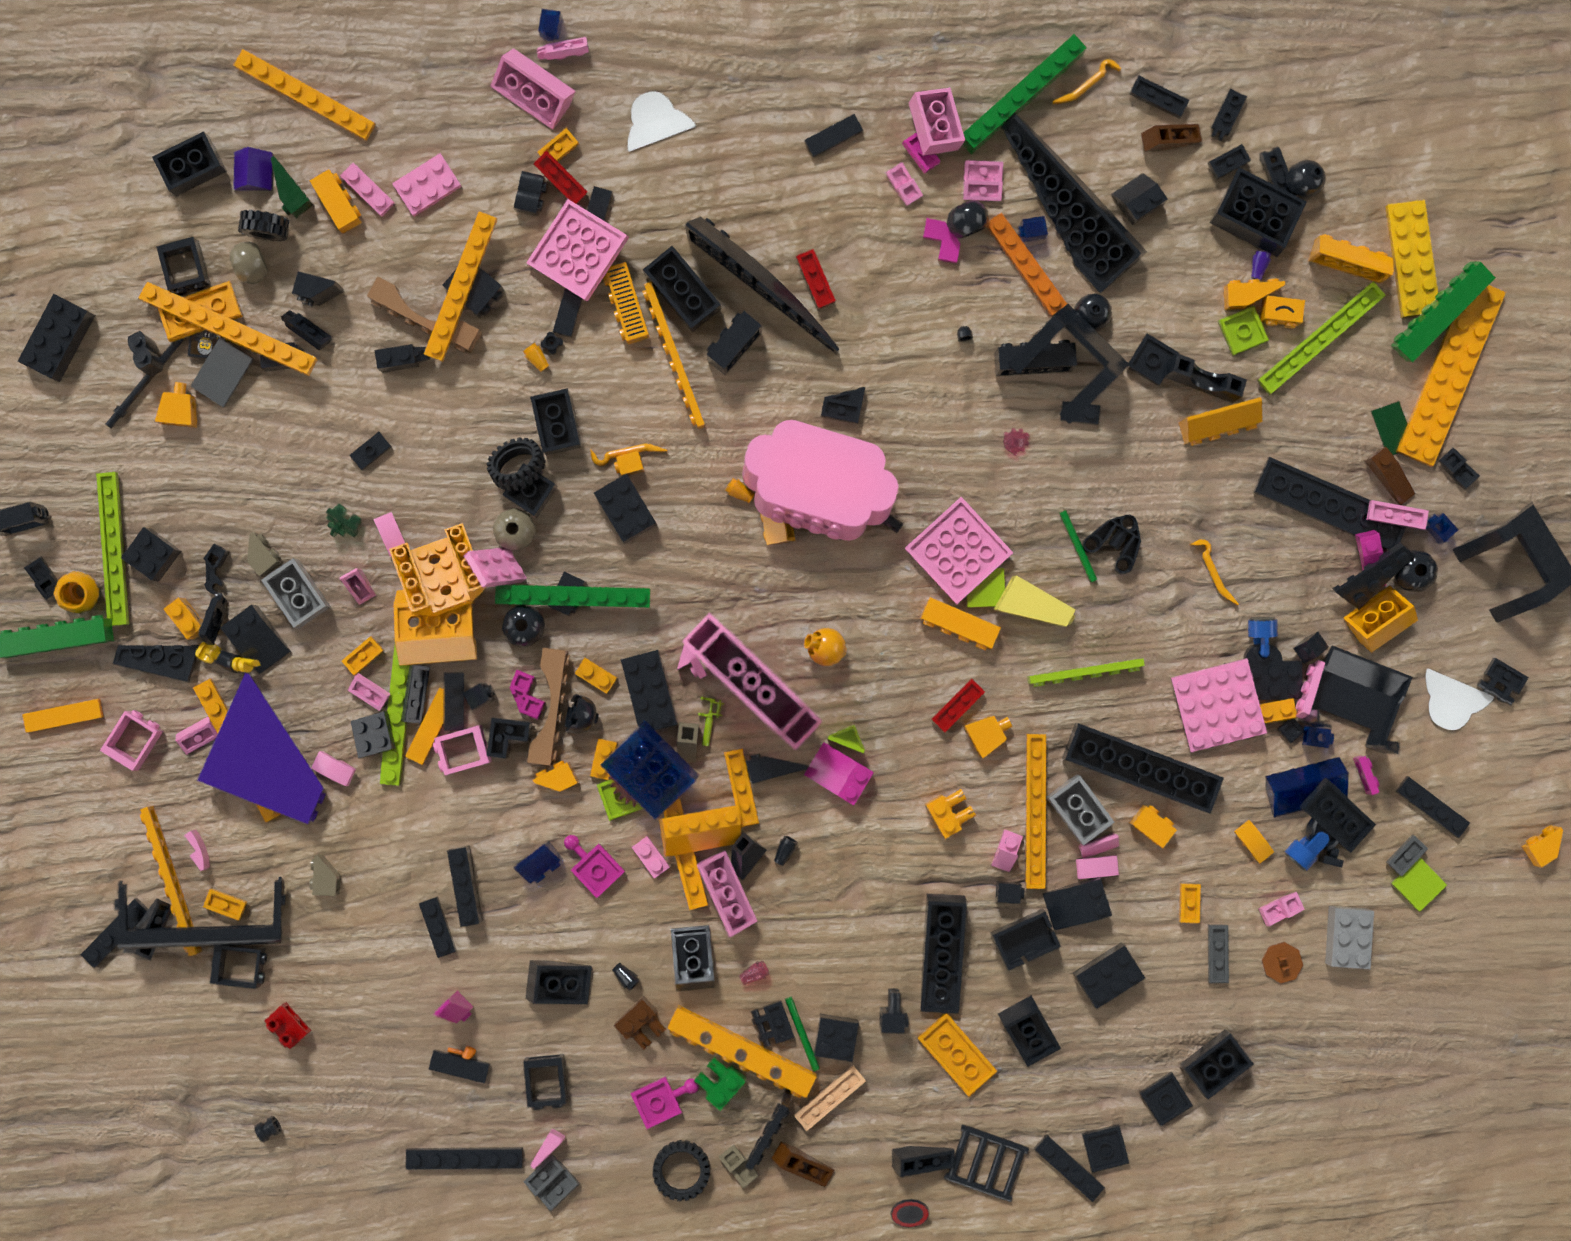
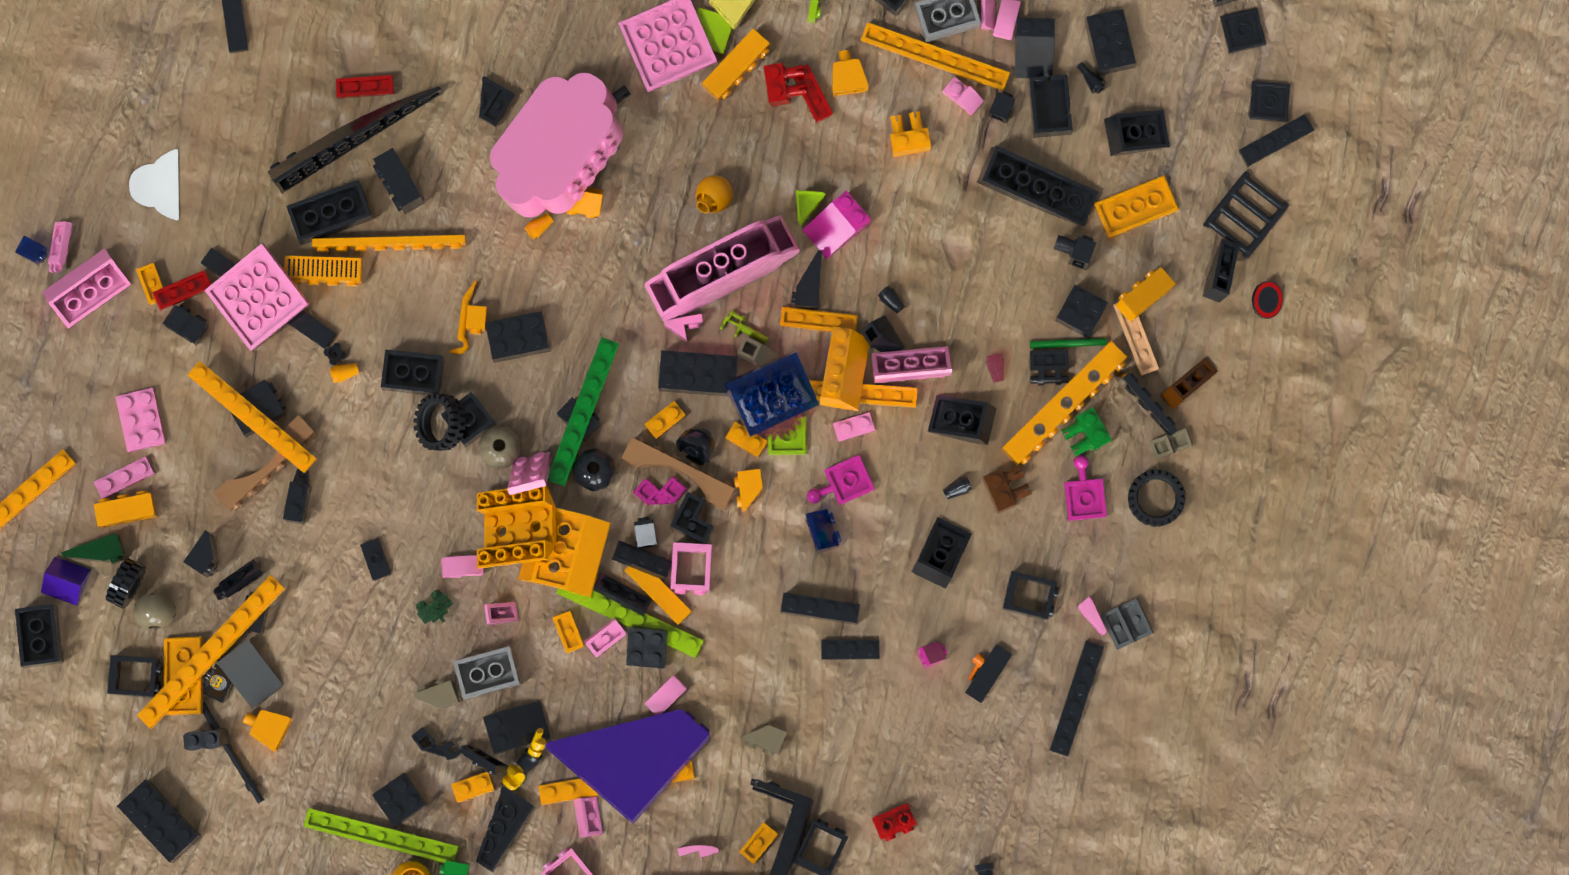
camera: 65 degrees left, 5 degrees down
(873, 1094) = (1144, 294): none -> light orange brick
(955, 669) = (777, 83): none -> red brick
(1064, 973) = (1094, 82): none -> black cone

